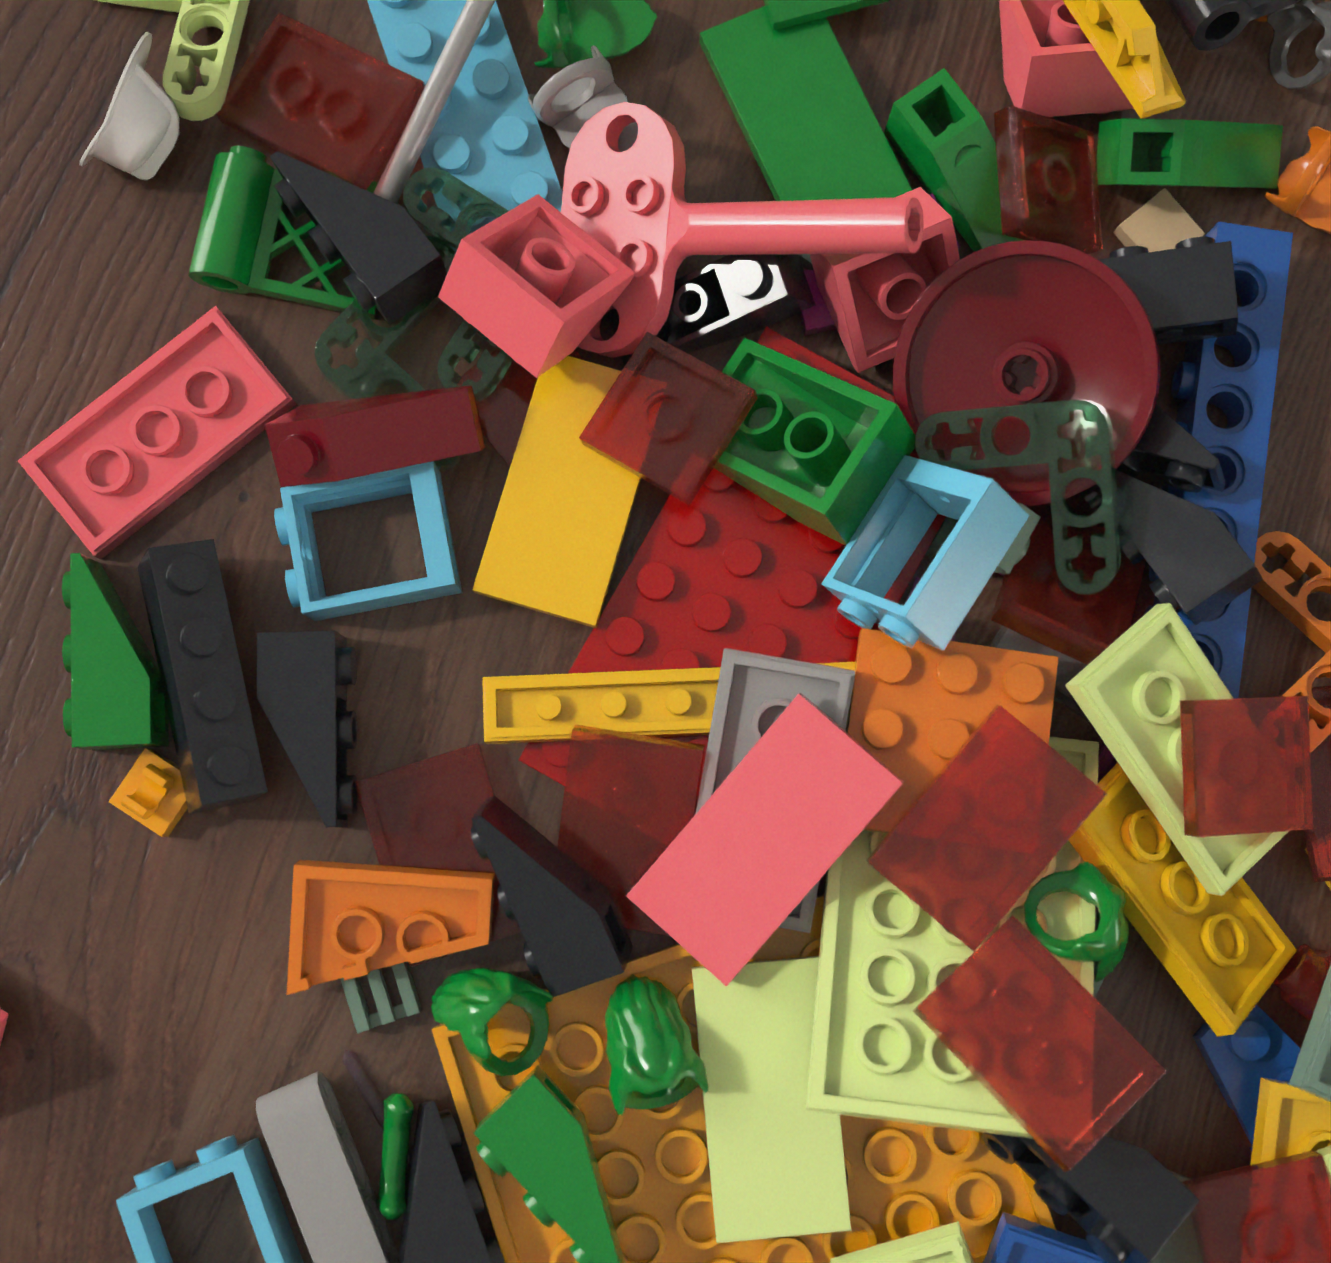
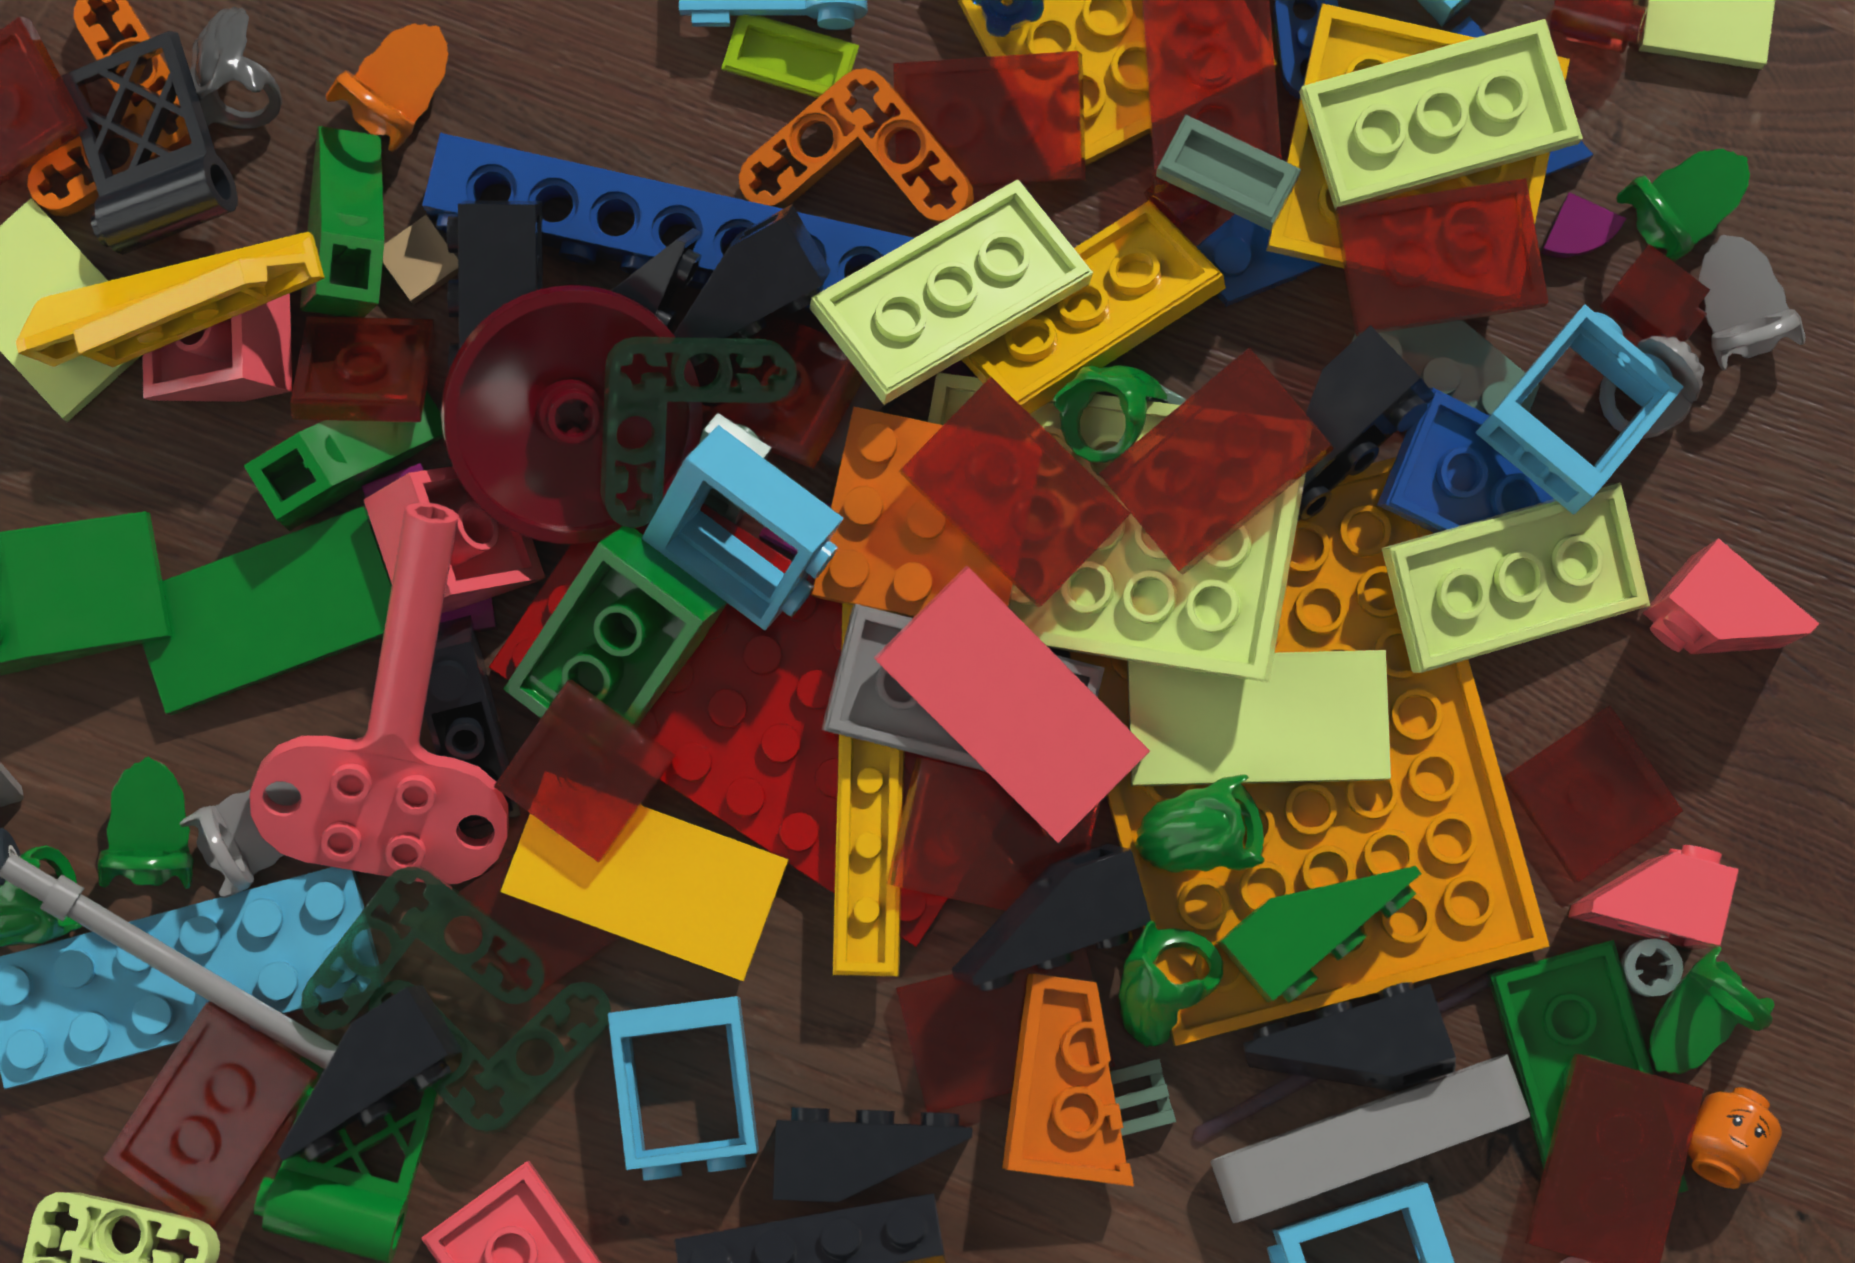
camera: 85 degrees left, 0 degrees up
(373, 434) = (578, 1072): dark red slope -> none
(394, 1157) = (1332, 1094): green piece -> none
(533, 283) = (440, 893): coral slope -> none
(1246, 765) = (970, 239): clear red tile -> none

